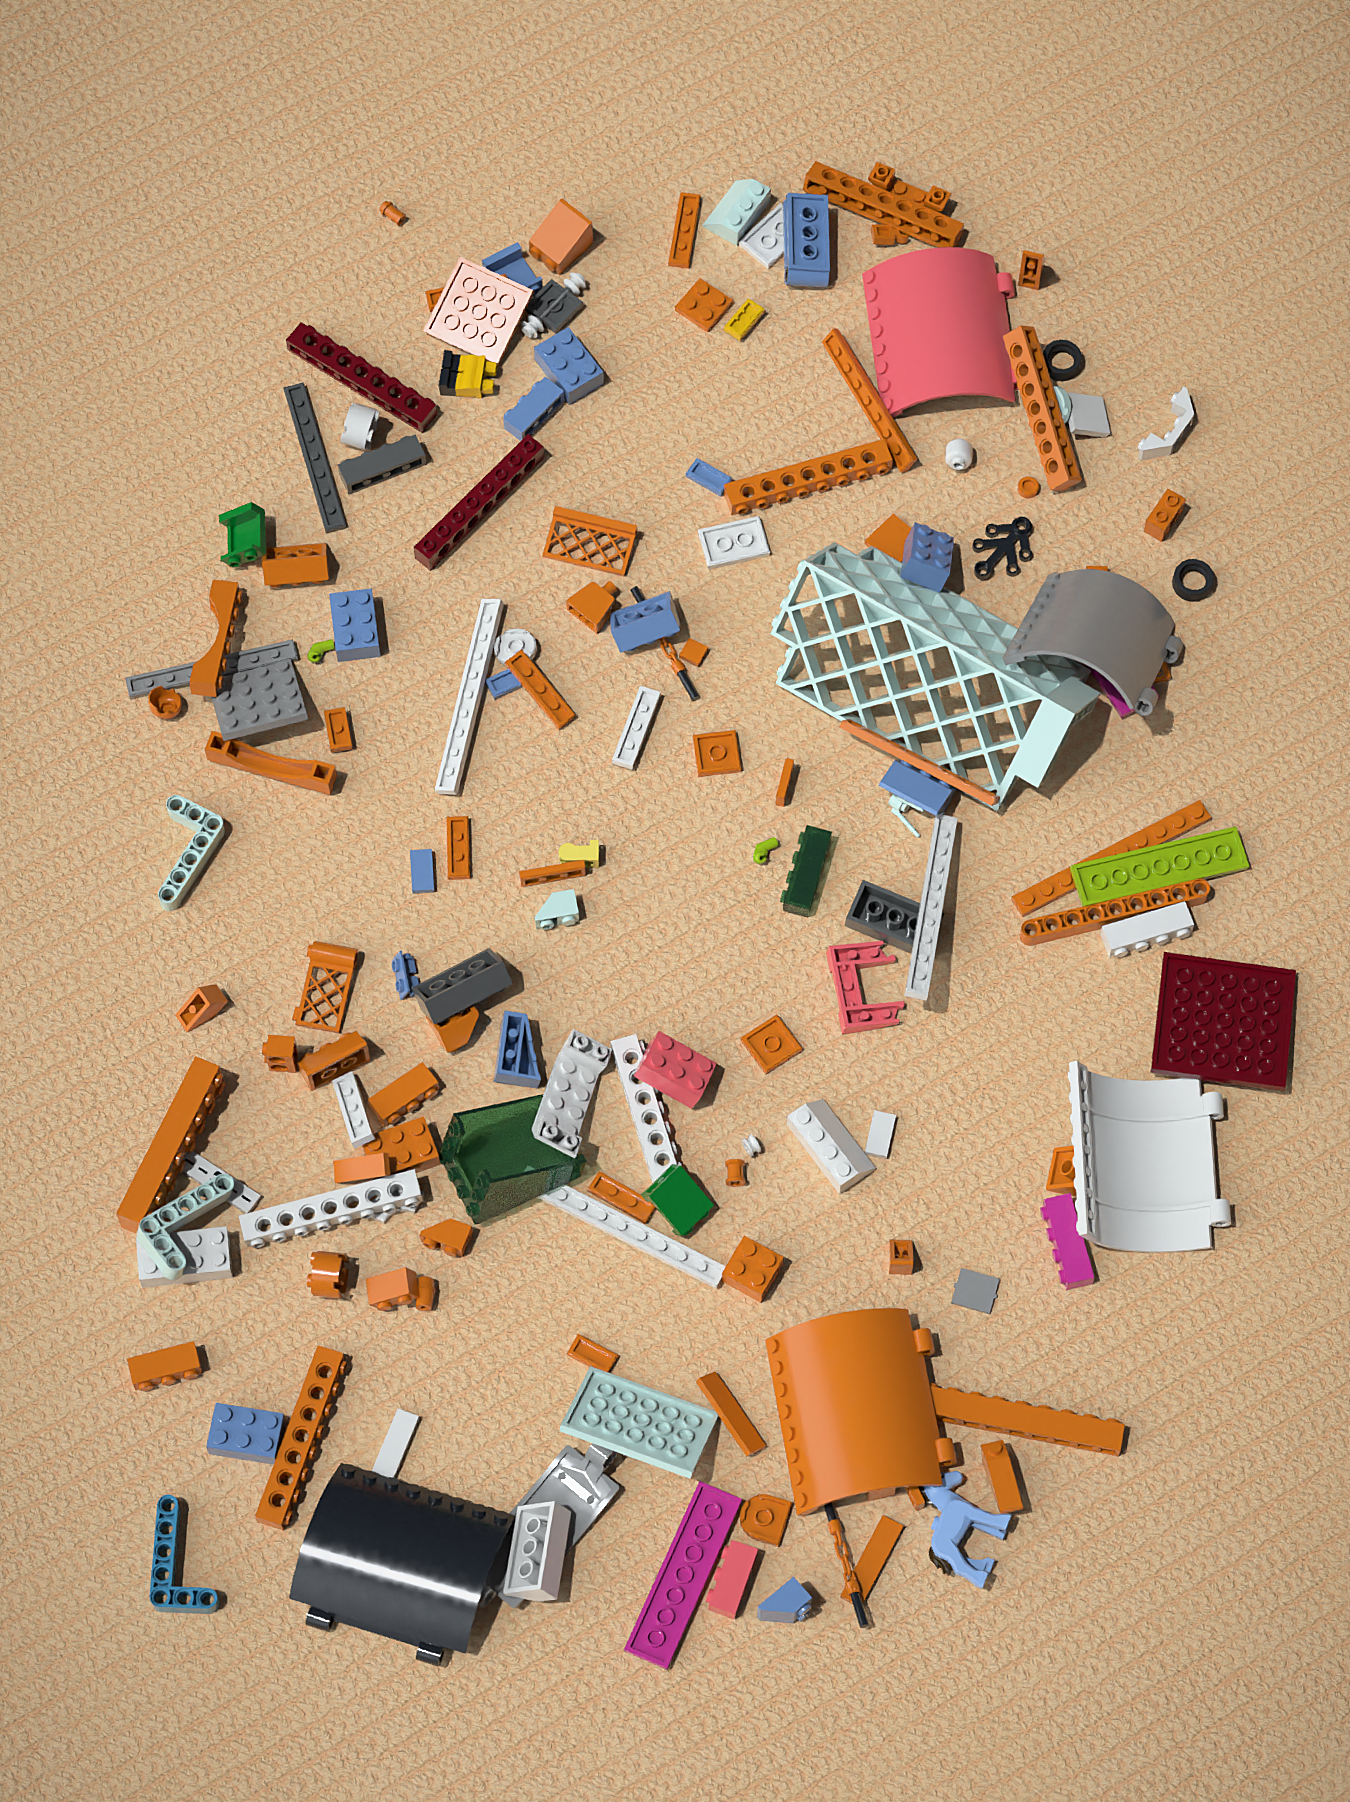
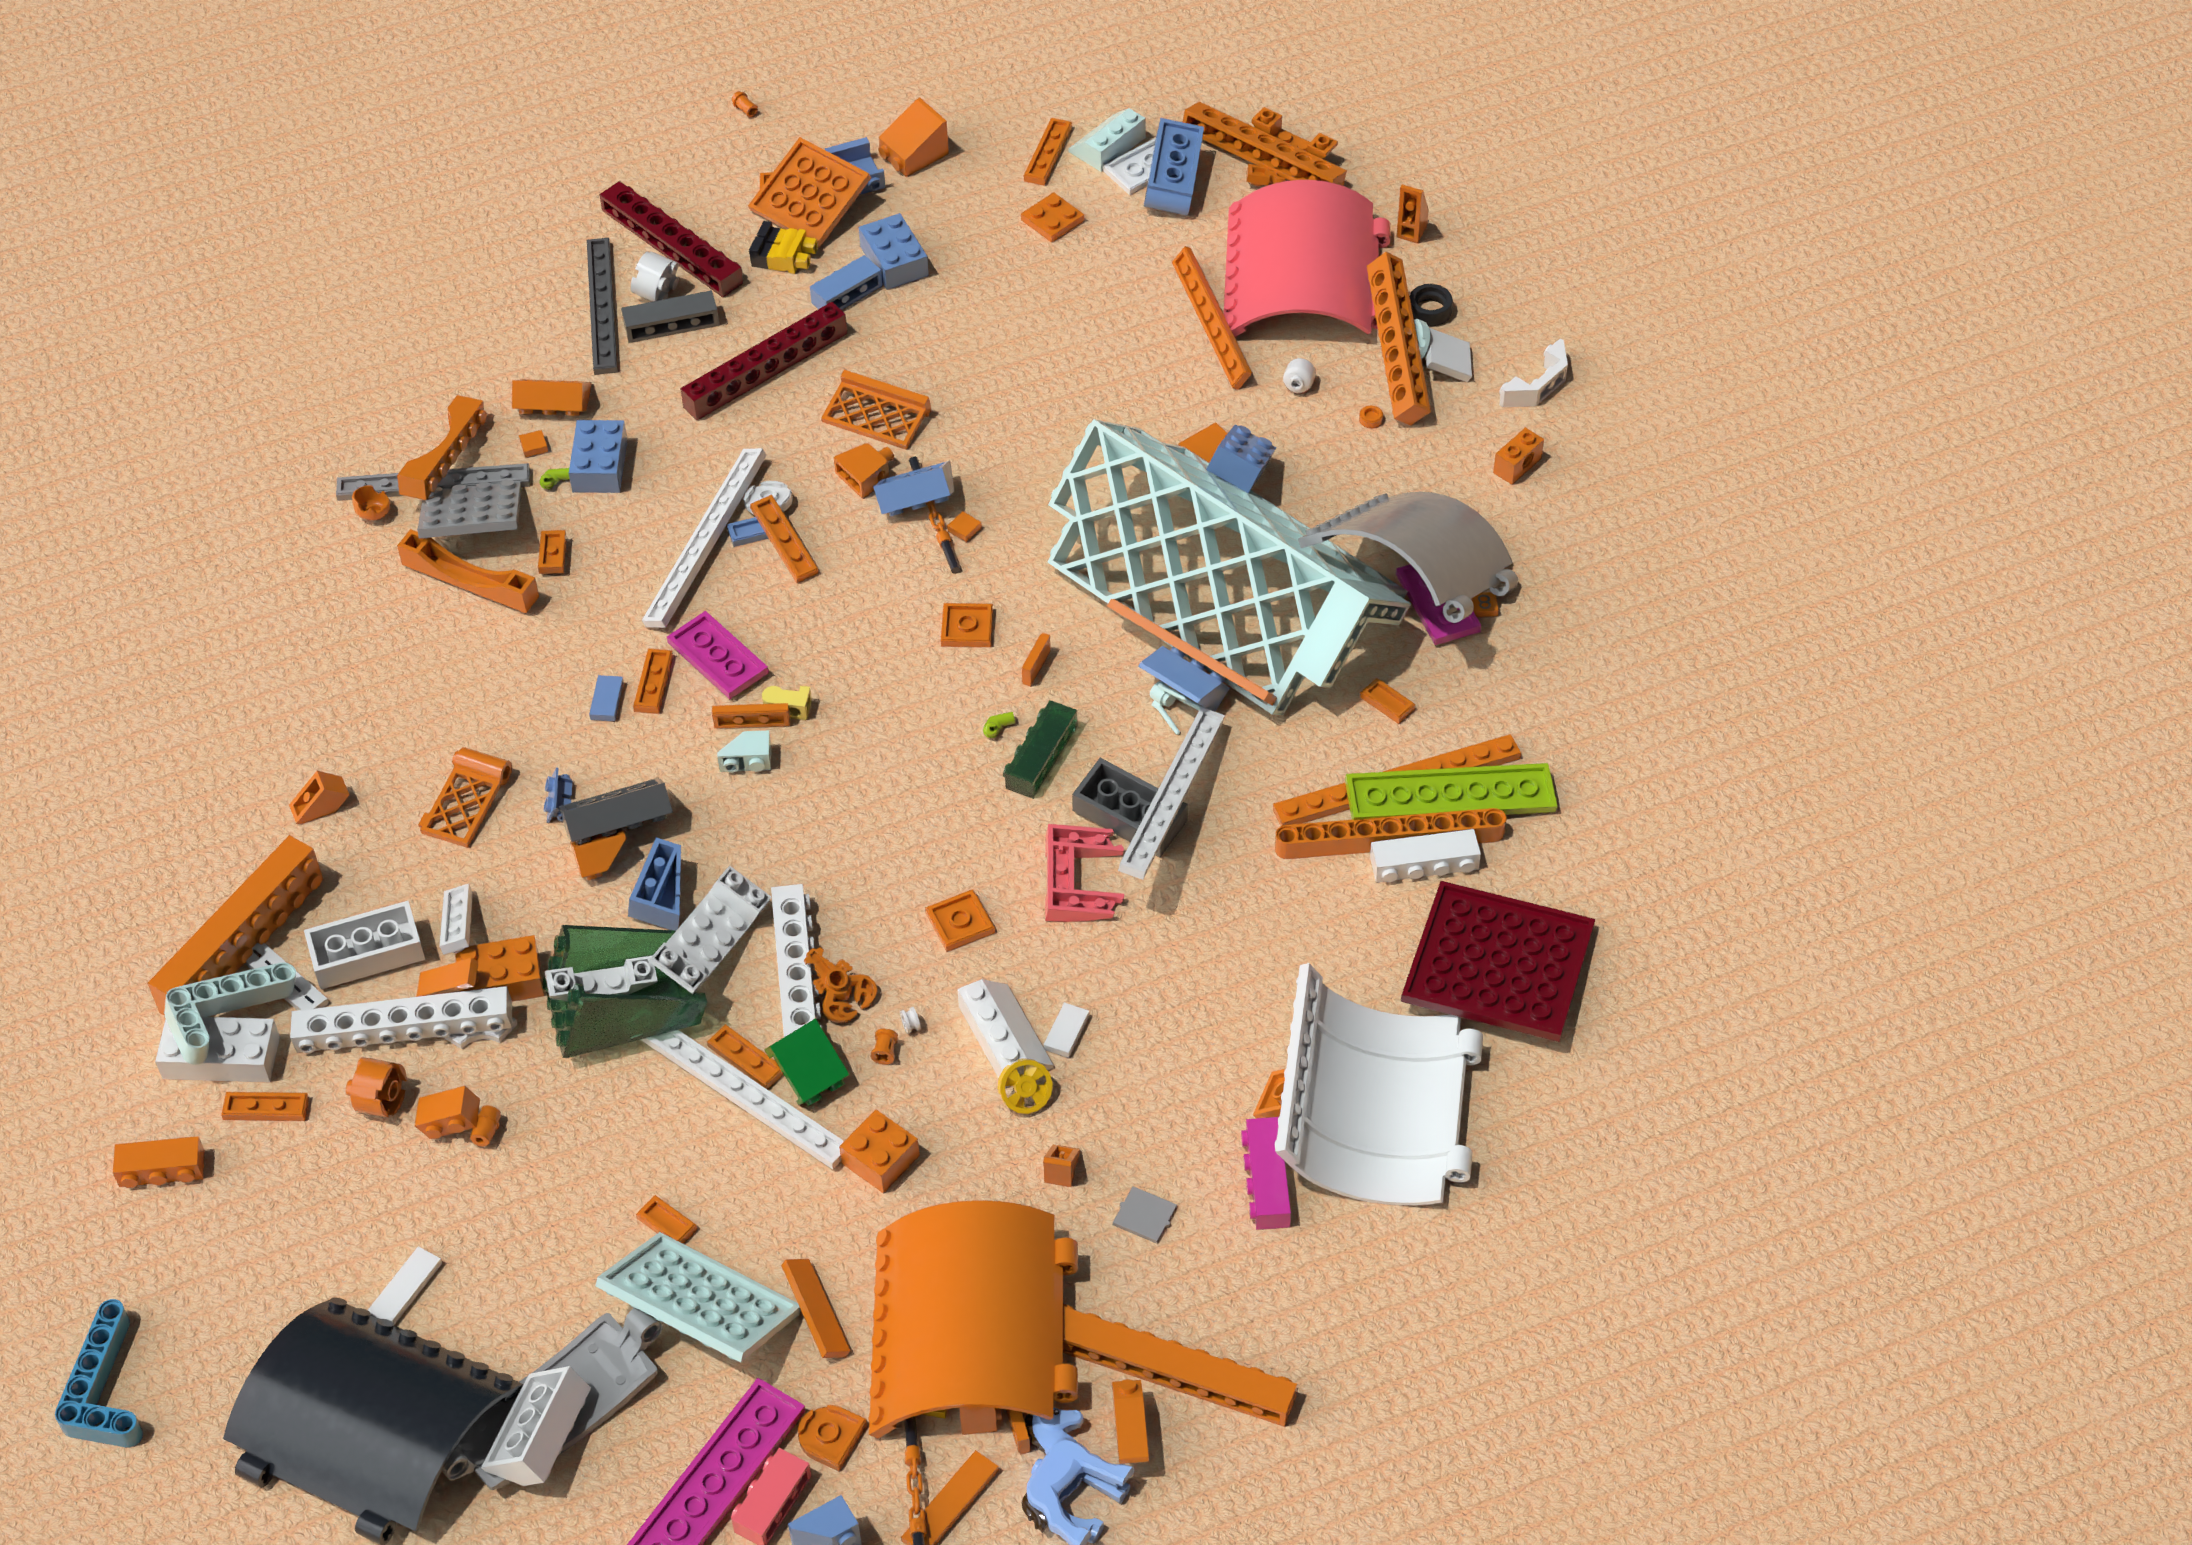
camera: 10 degrees right, 15 degrees down
(192, 851) = (378, 633): light aqua beam -> none
(236, 1301) = (265, 1106): none -> orange tile
(244, 534) = (506, 358): green panel -> none
(245, 1433) = (229, 1248): medium blue brick -> none
(281, 1053) = (392, 852): orange brick -> none
(281, 1143) = (364, 945): none -> white brick
(291, 616) = (533, 443): none -> orange tile
(322, 1360) = (239, 1345): orange brick -> none
(333, 1060) = (450, 870): orange slope -> none
(403, 1095) = (521, 913): orange brick -> none
(449, 1236) = (530, 1068): orange slope -> none
(493, 1151) = (623, 980): none -> white slope
(508, 815) = (717, 655): none -> dark pink plate
(554, 305) = (892, 198): dark grey plate -> none
(636, 727) = (881, 588): white plate -> none
(675, 1069) = (837, 923): coral brick -> none
(685, 1123) = (838, 986): none -> orange animal
(708, 477) = (1020, 369): medium blue tile -> none
(733, 542) = (1033, 431): white tile -> none
(744, 319) = (1092, 233): yellow plate -> none
(814, 468) = (1128, 378): orange brick -> none
(859, 1194) = (1025, 1085): none -> yellow piece
(1004, 545) = (1353, 452): black plant -> none
(1090, 779) = (1387, 700): none -> orange tile
(1193, 565) = (1537, 534): black tyre -> none

